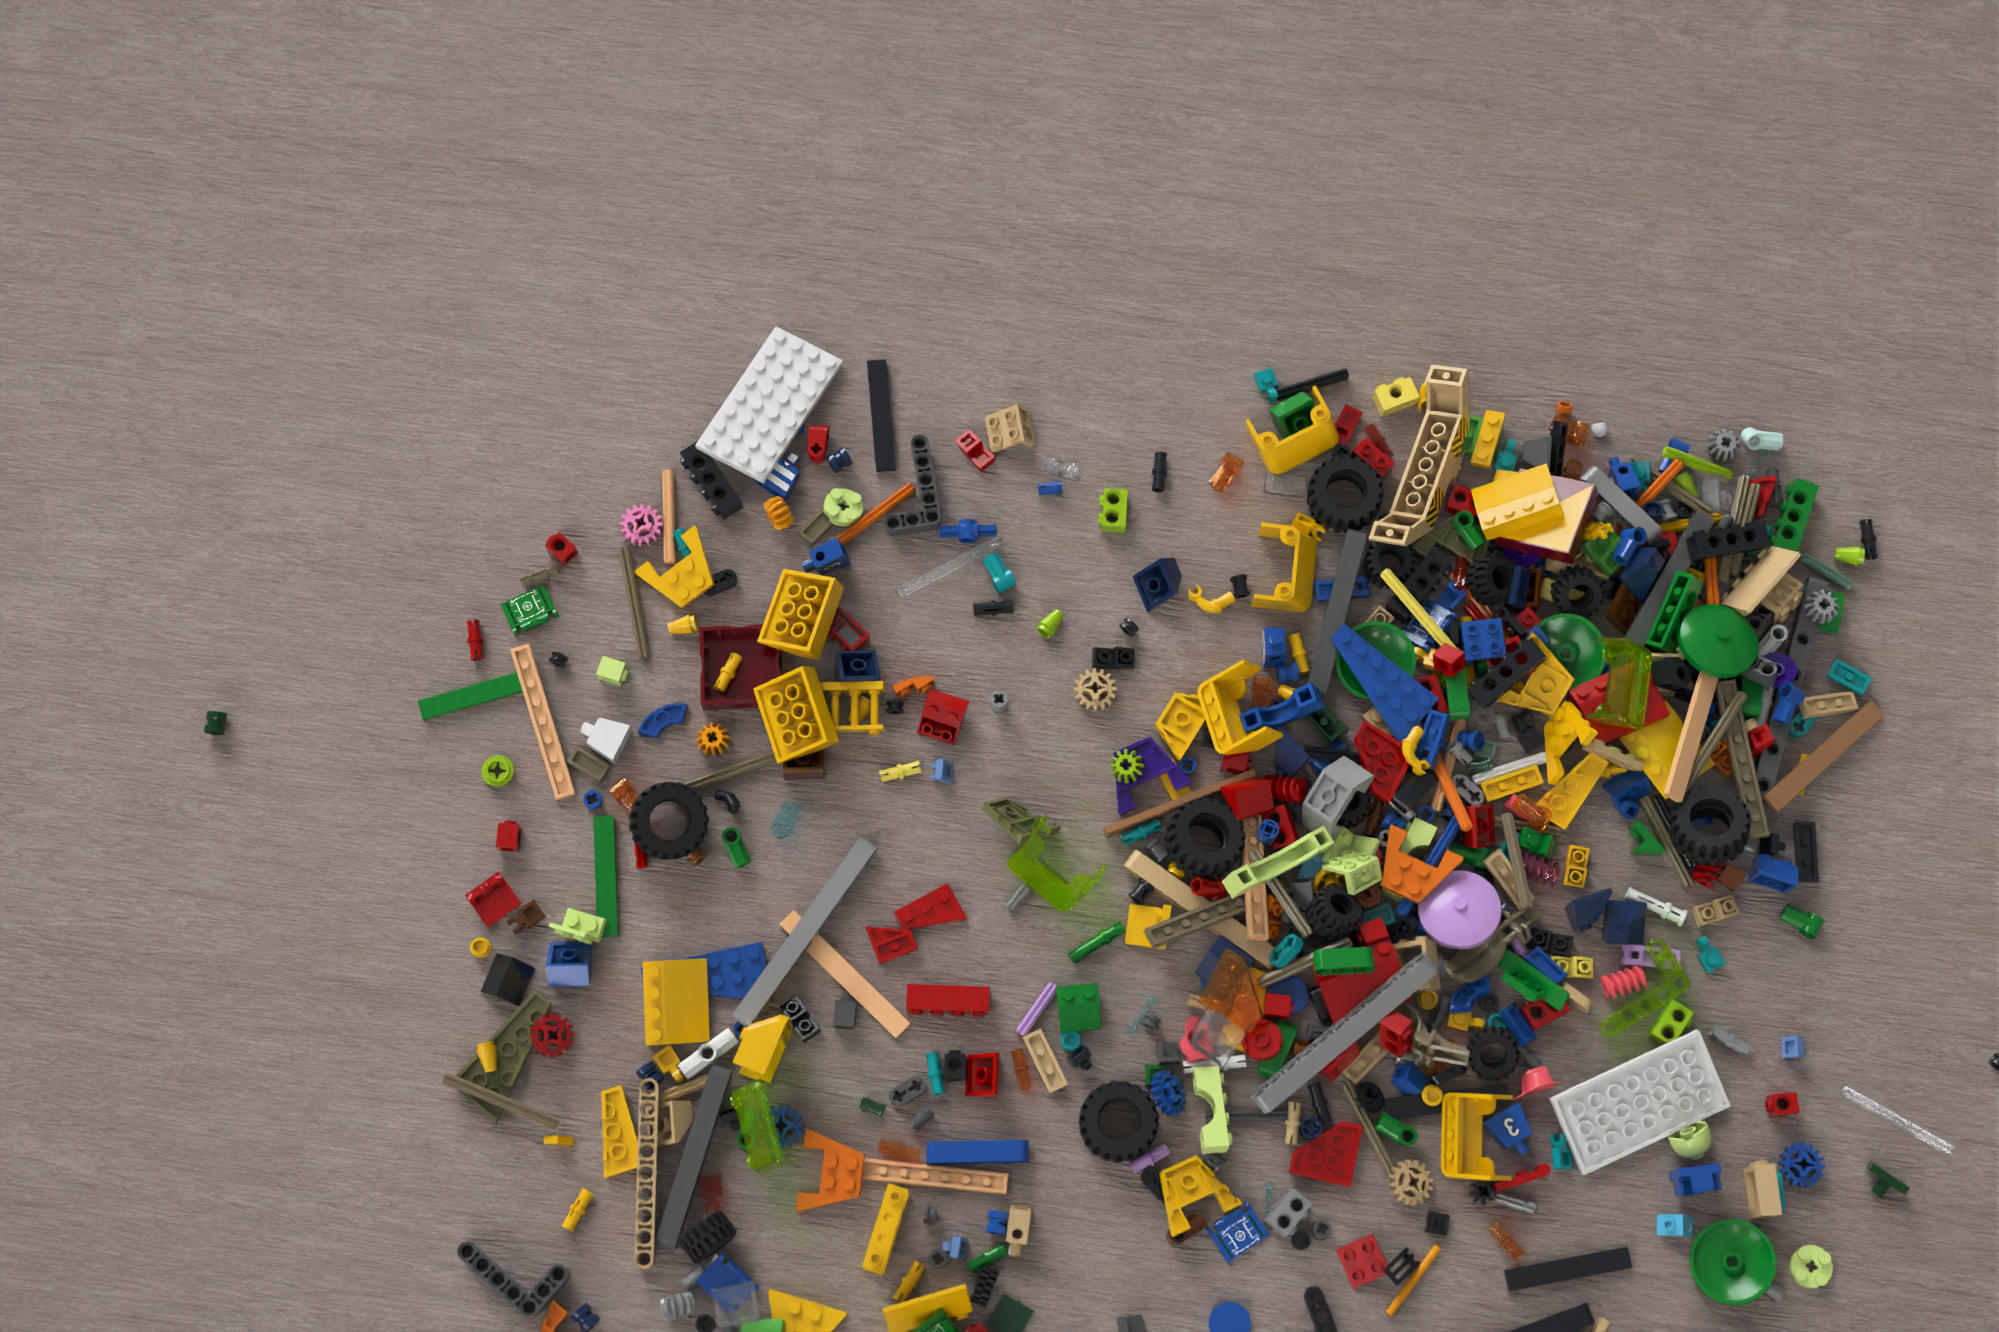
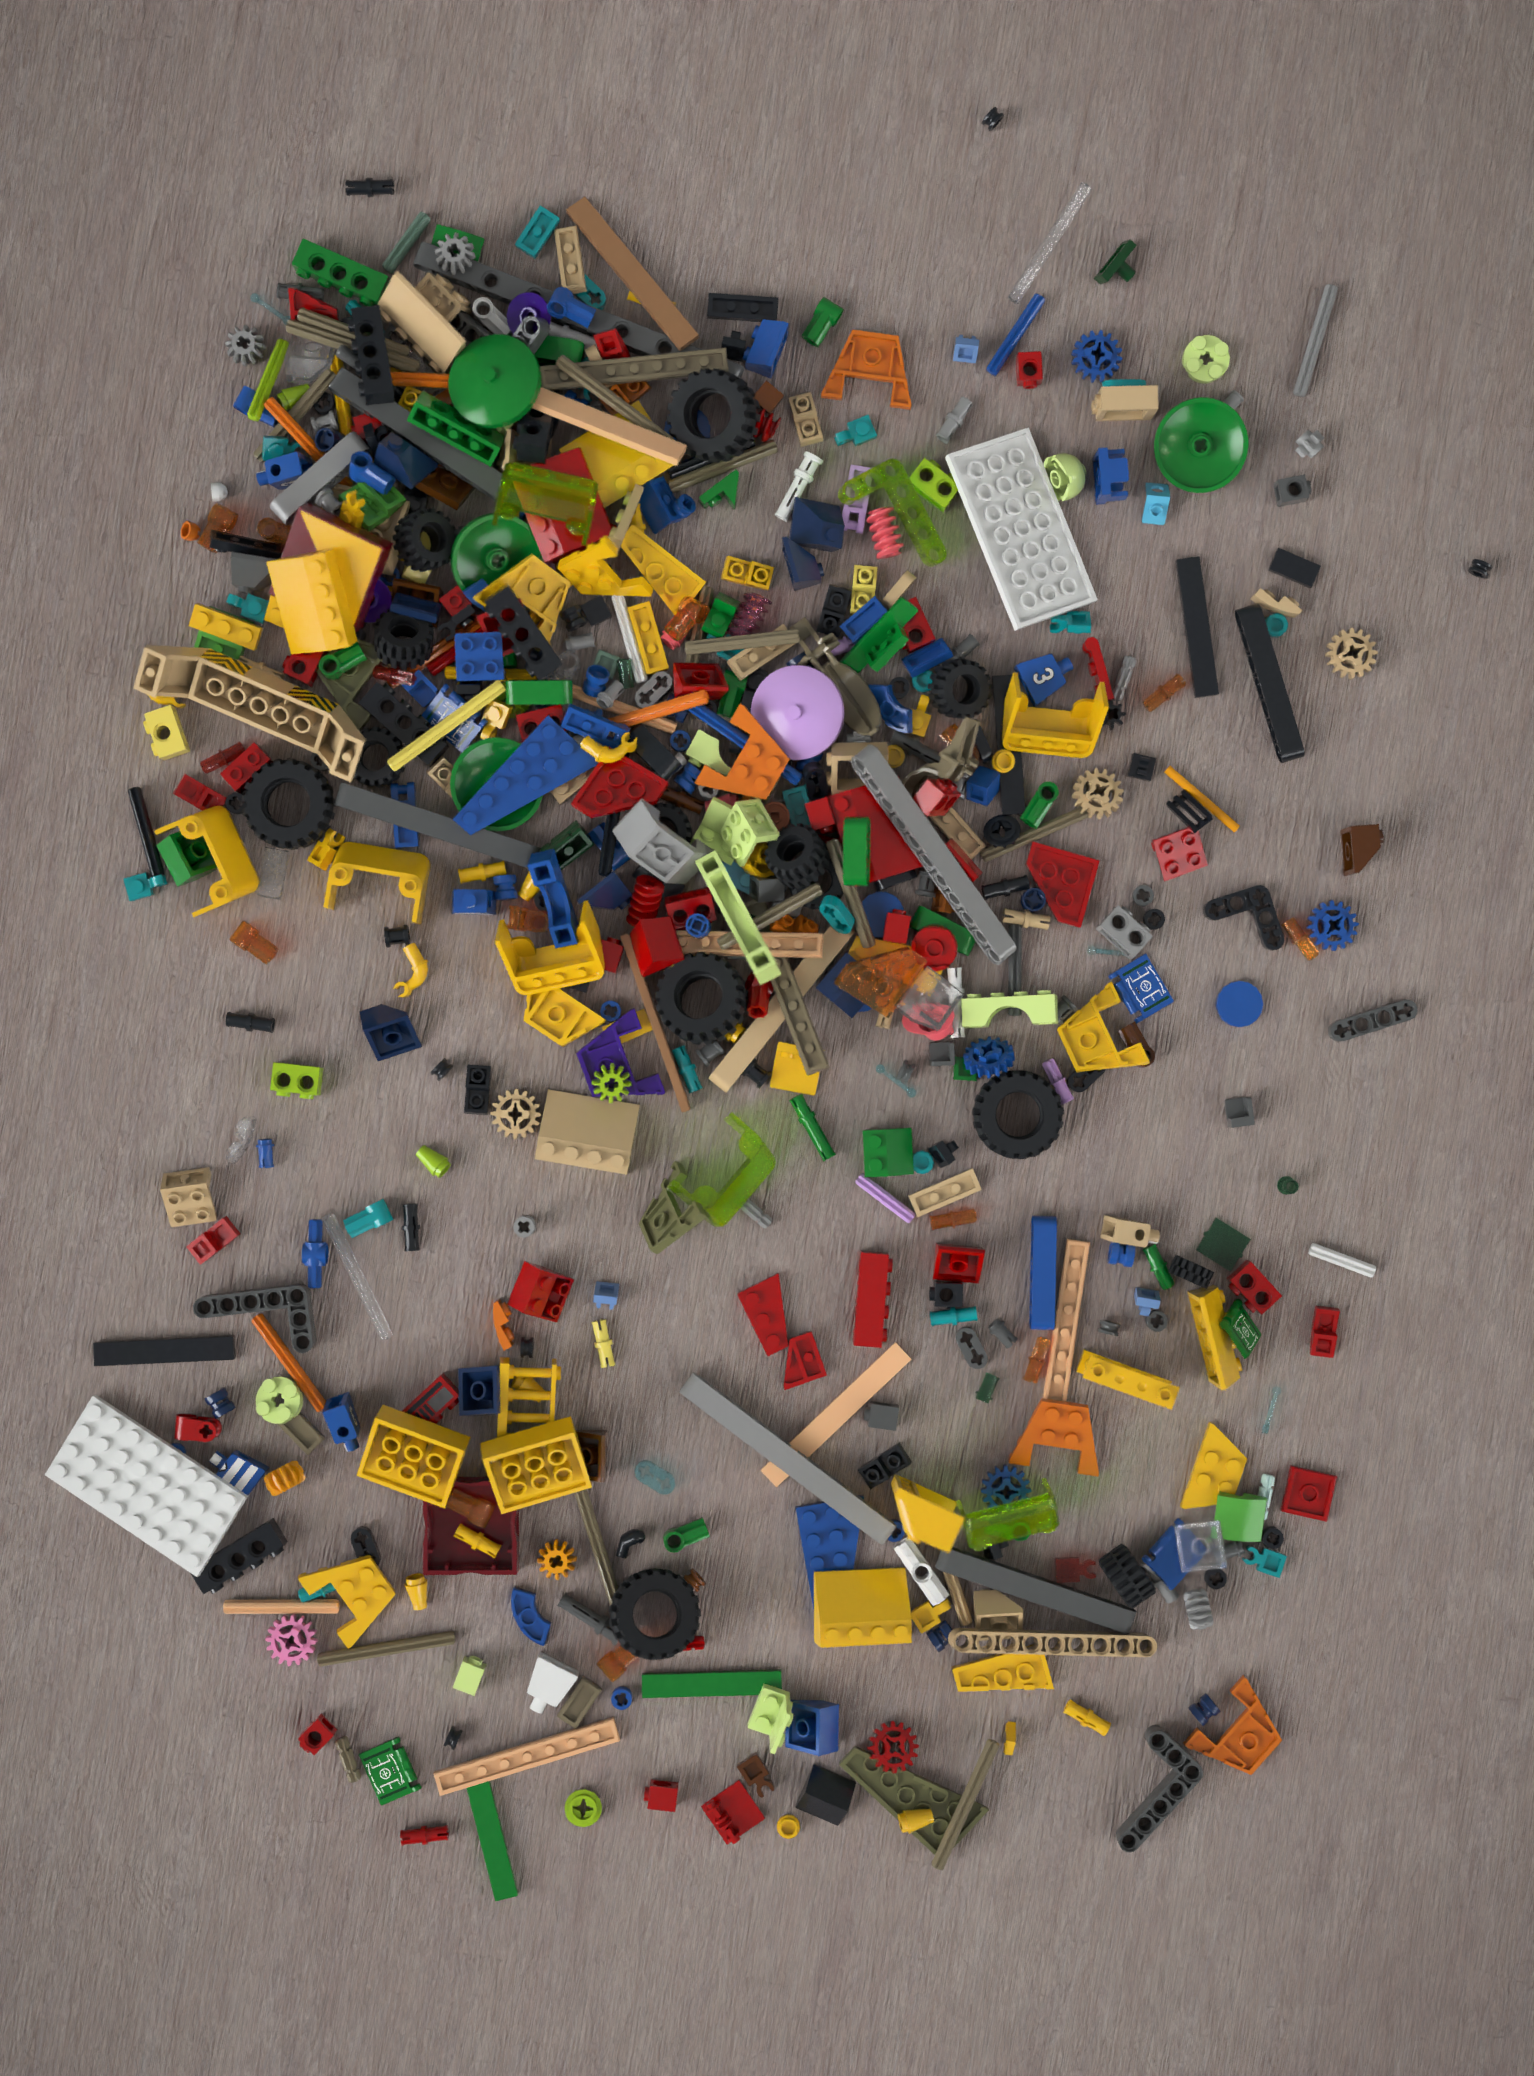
camera: 80 degrees left, 15 degrees up
(664, 766) = (600, 1624): none -> dark grey pin
(754, 670) = (475, 1509): none -> clear orange piece
(909, 1282) = (1180, 1353): yellow pin -> none
(1082, 750) = (587, 1132): none -> tan slope
(1448, 660) = (503, 699): red brick -> none
(1536, 1081) = (991, 643): coral piece -> none
(1762, 439) = (240, 299): light aqua piece -> none
(1775, 964) = (870, 358): none -> orange wing
(1811, 1092) = (1015, 334): none -> blue axle
(1850, 555) = (388, 211): lime cone -> none

